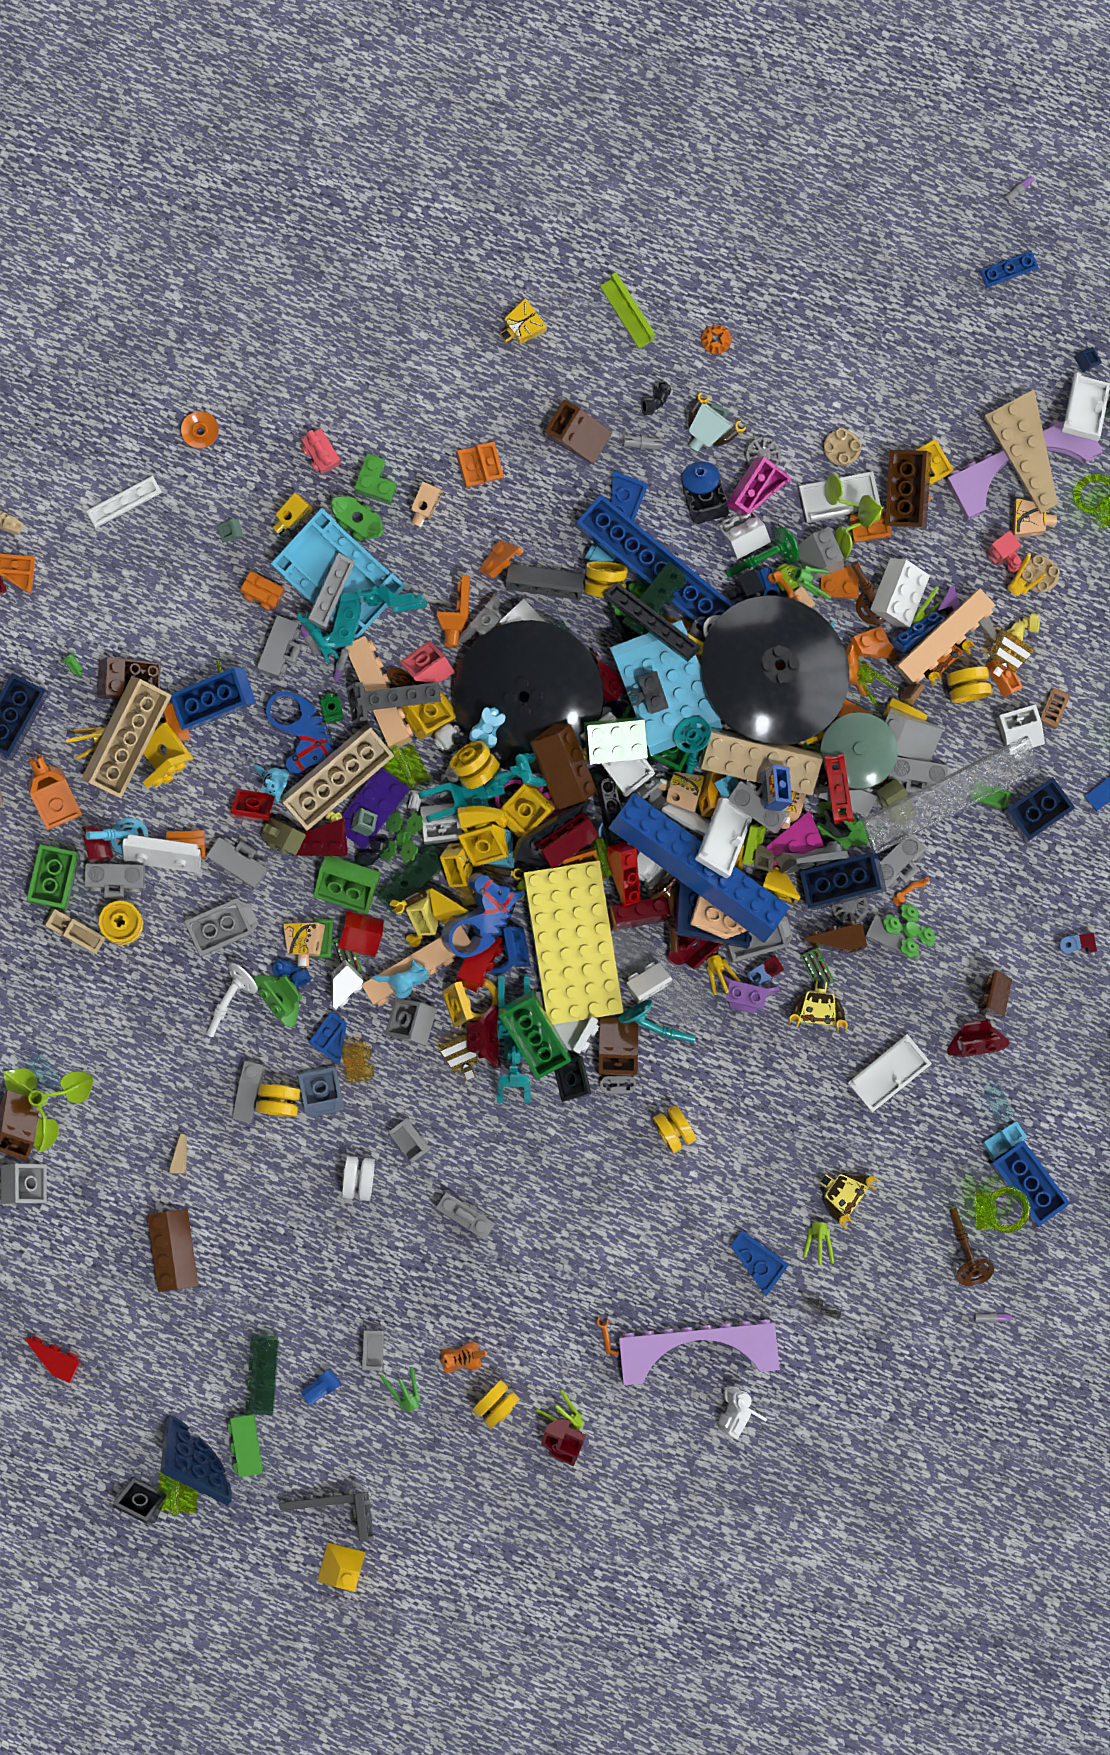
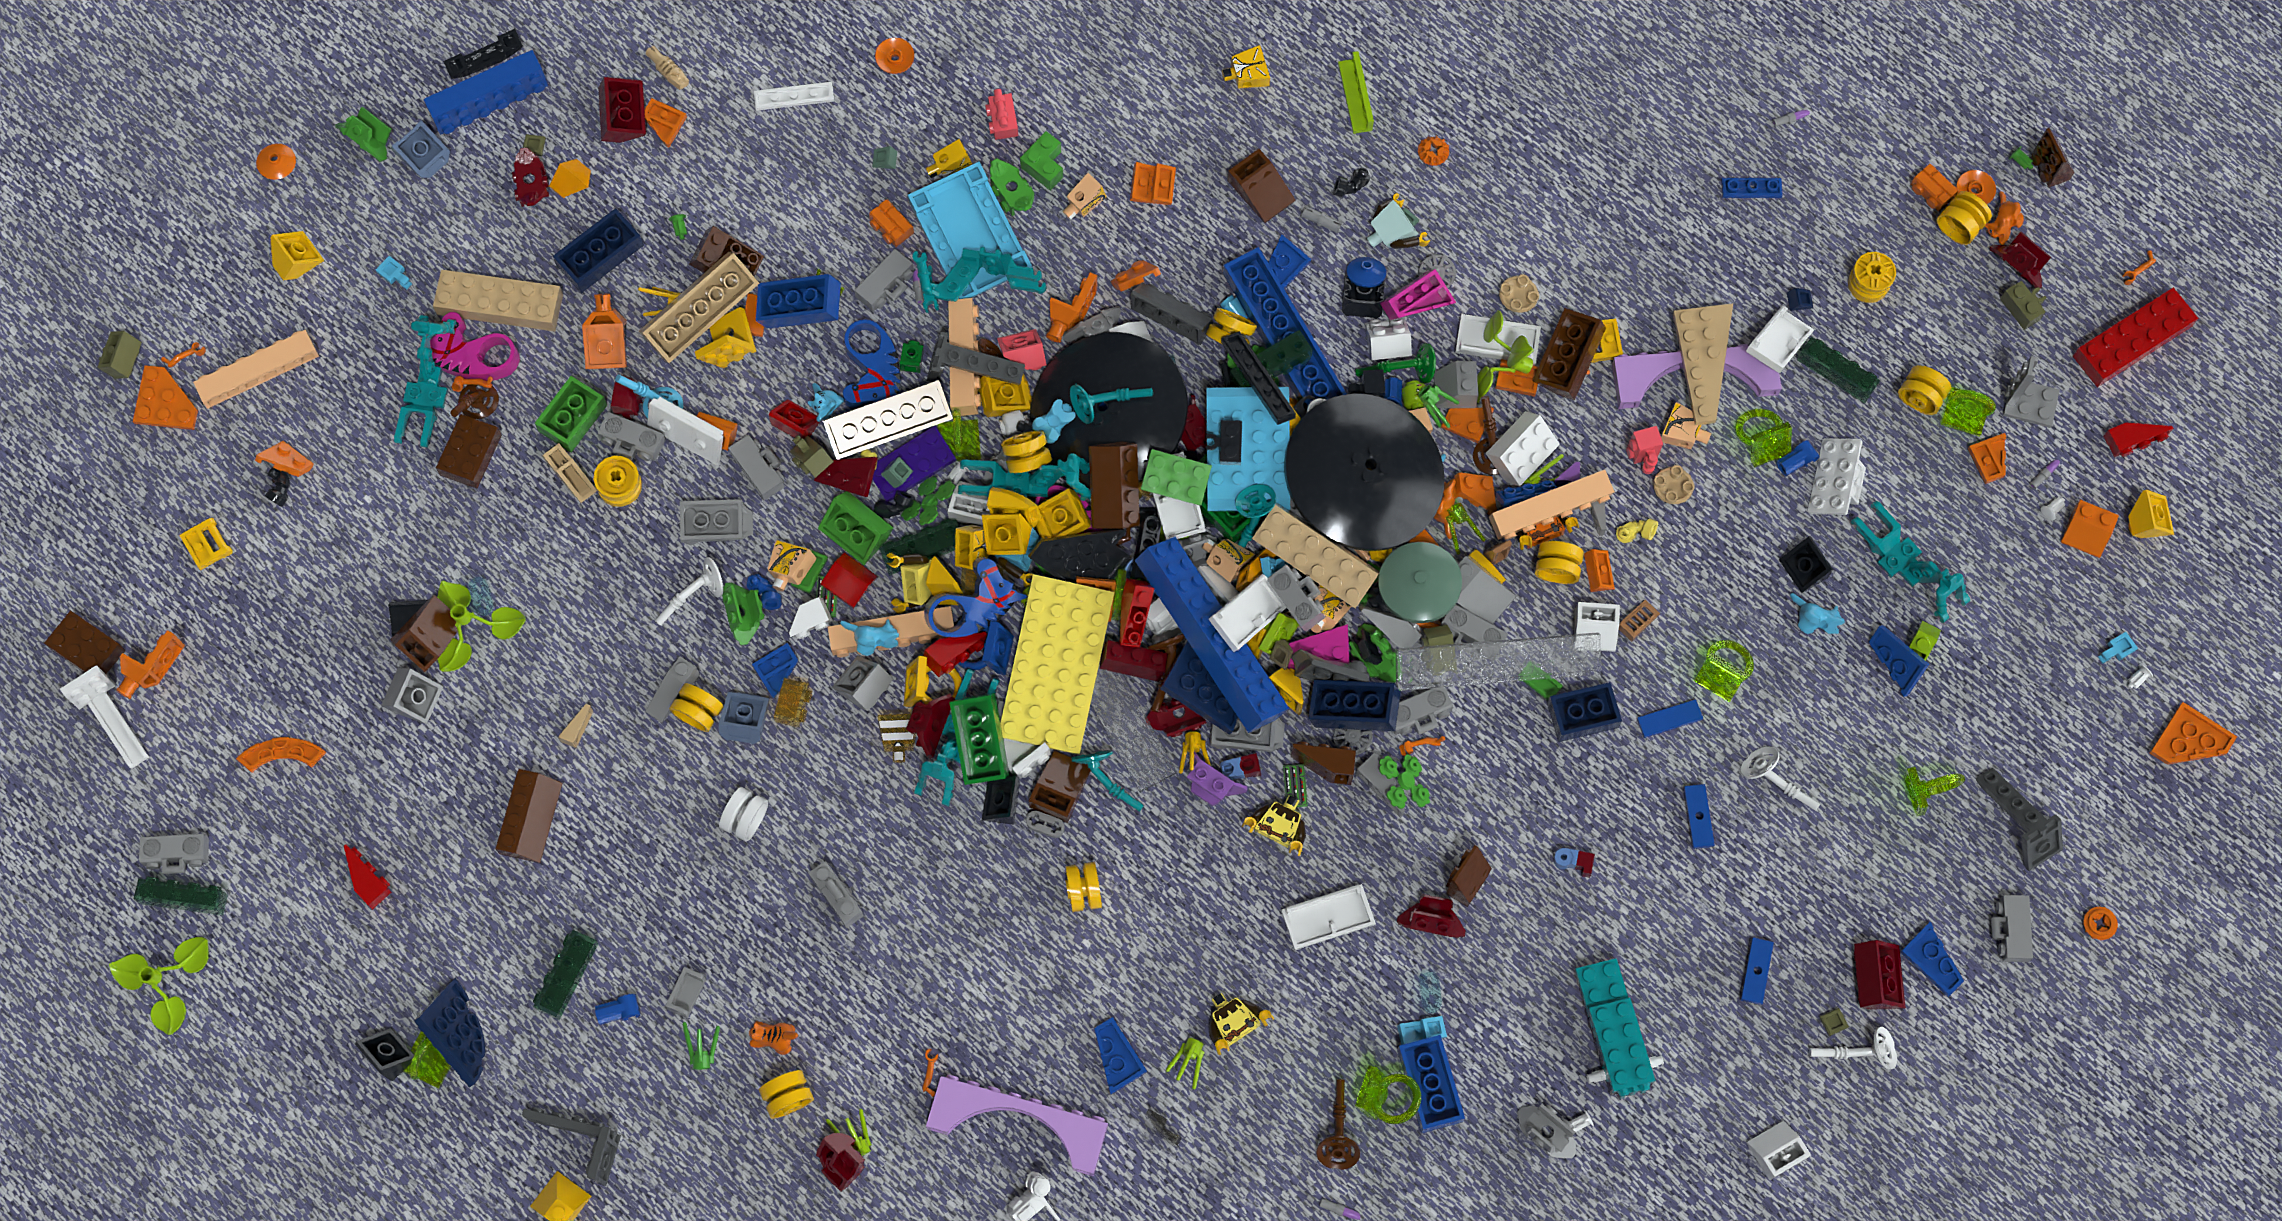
camera: 25 degrees right, 10 degrees down
(245, 1446) = (516, 1039): bright green brick -> none
(330, 590) = (955, 242): light grey plate -> none
(340, 665) = (937, 318): light grey piece -> none
(409, 1141) = (811, 798): light grey panel -> none
(510, 700) = (1087, 401): none -> teal dish
(567, 840) = (1089, 560): dark red brick -> none
(649, 982) = (1116, 731): white slope -> none
(713, 920) = (1206, 692): light nougat tile -> none
(776, 788) = (1319, 581): blue brick -> none
(777, 577) = (1404, 388): orange piece -> none
(839, 788) = (1384, 609): red plate -> none
(1009, 653) = (1611, 546): clear yellow torso -> none
(1017, 585) = (1646, 486): yellow plant -> none

